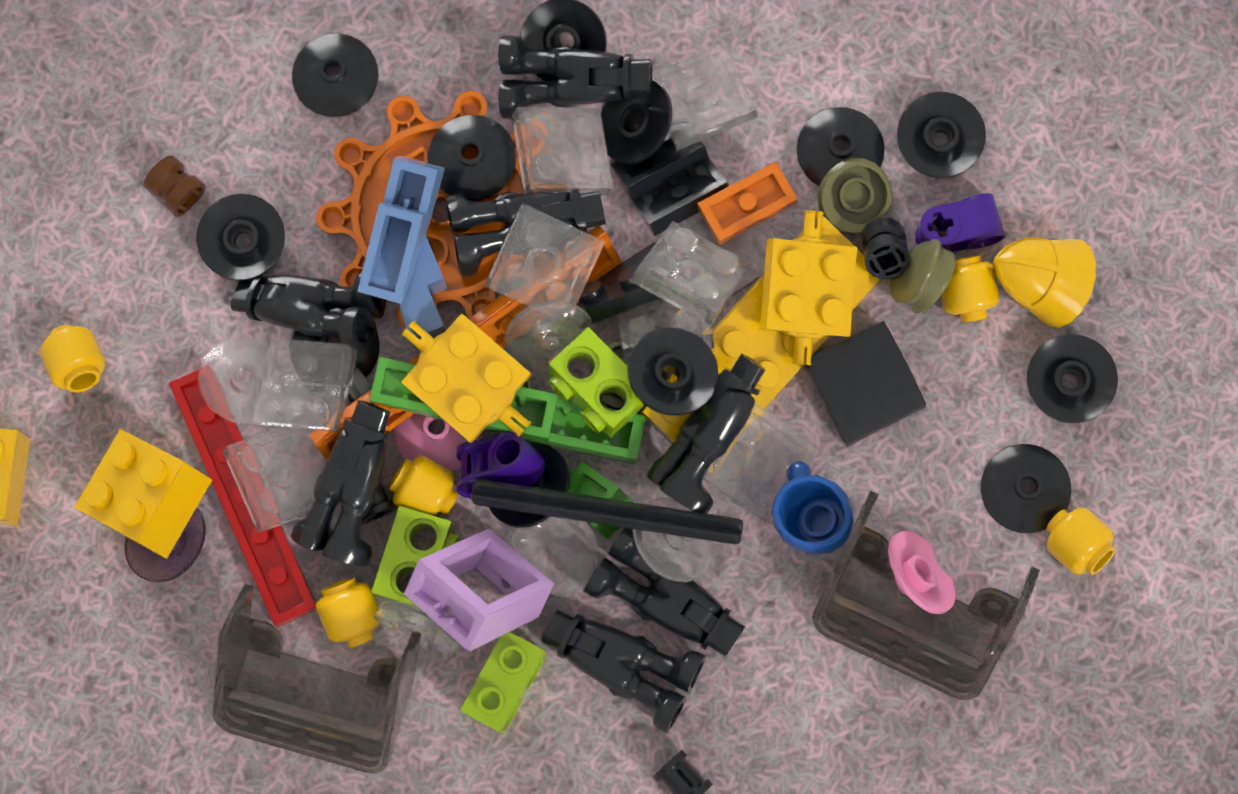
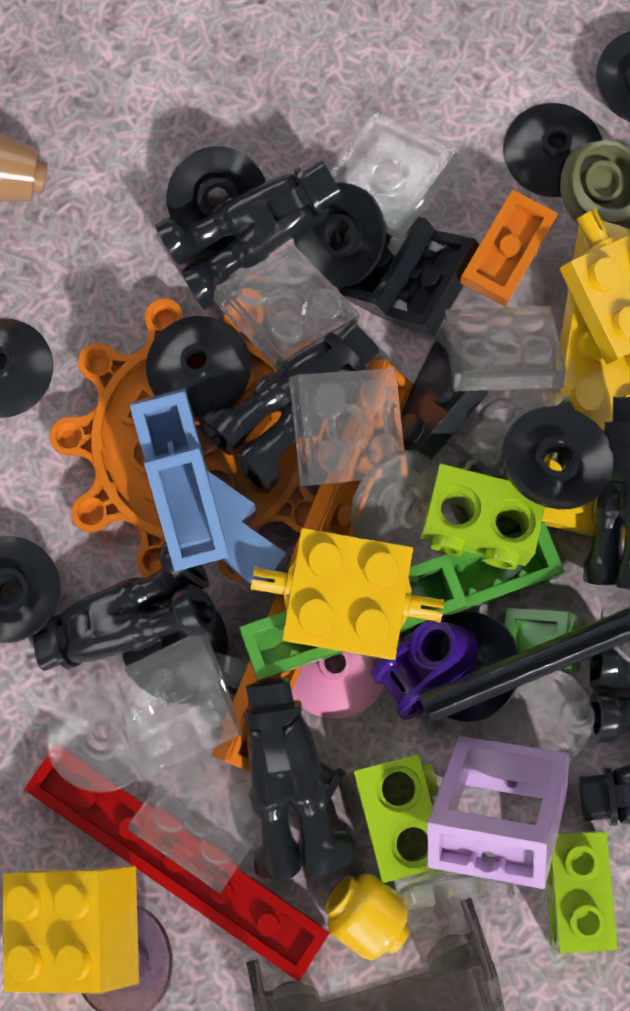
camera: 35 degrees left, 0 degrees up
(423, 486) = (362, 734): yellow head -> none

